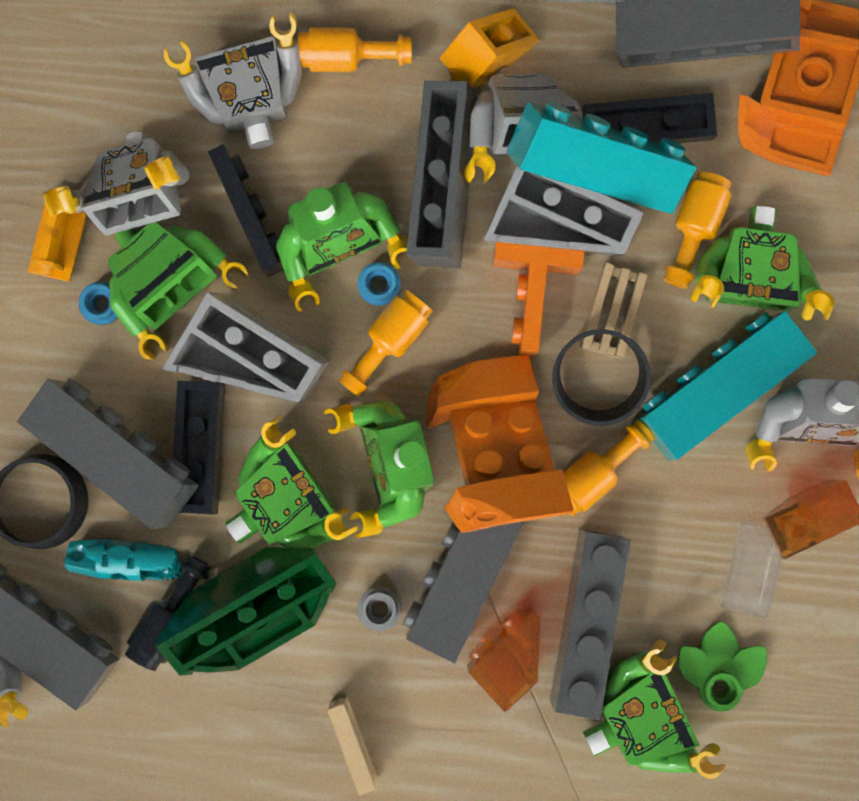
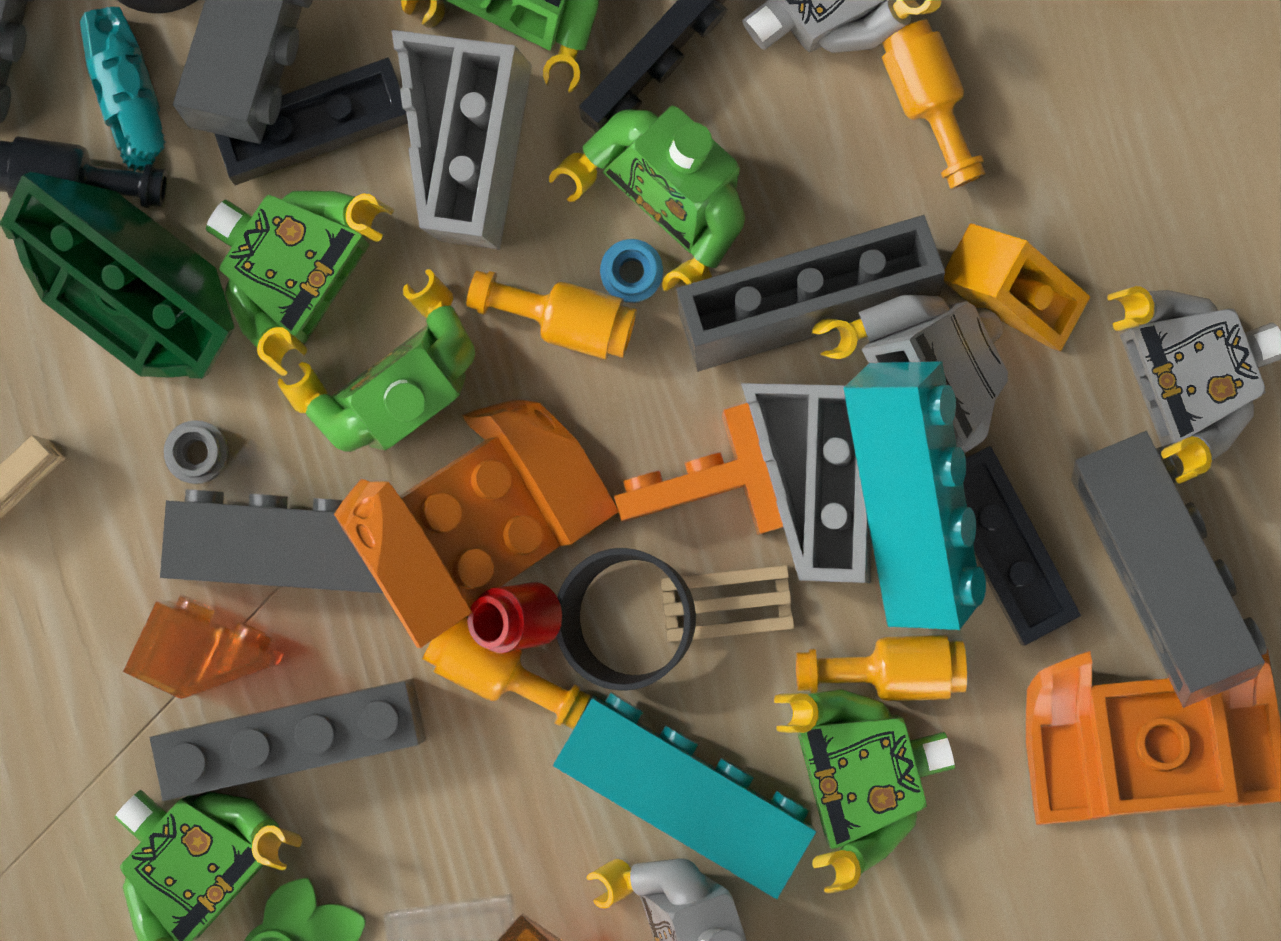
camera: 75 degrees right, 0 degrees up
(572, 444) = (515, 617): none -> red brick

